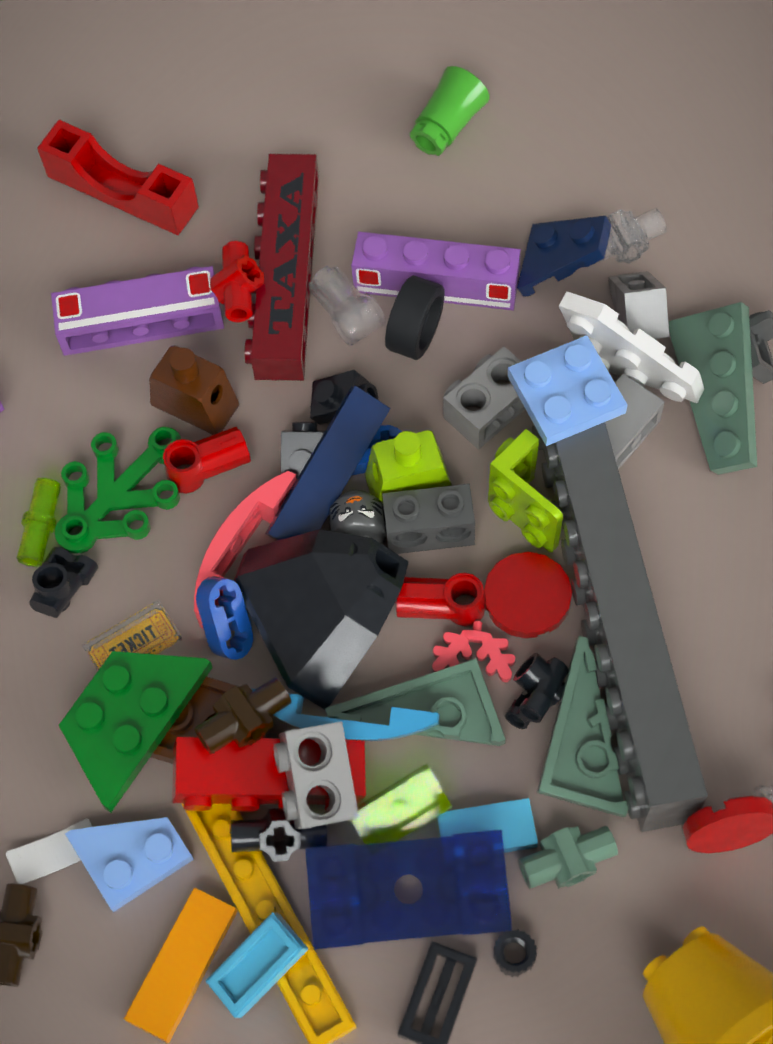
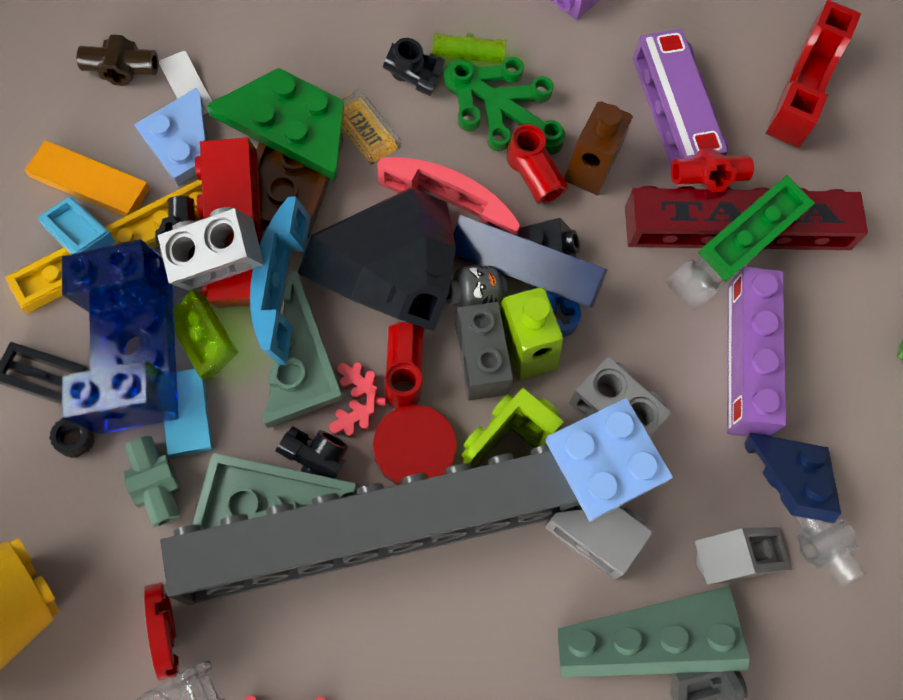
camera: 75 degrees right, 5 degrees up
(226, 616) = (371, 177): blue beam -> none
(243, 715) = (263, 184): dark brown axle -> none
(311, 247) = (756, 228): none -> green plate
(331, 391) = (617, 279): black bracket -> none
(414, 317) = (695, 328): black tyre -> none
(628, 353) = (670, 528): white plate -> none

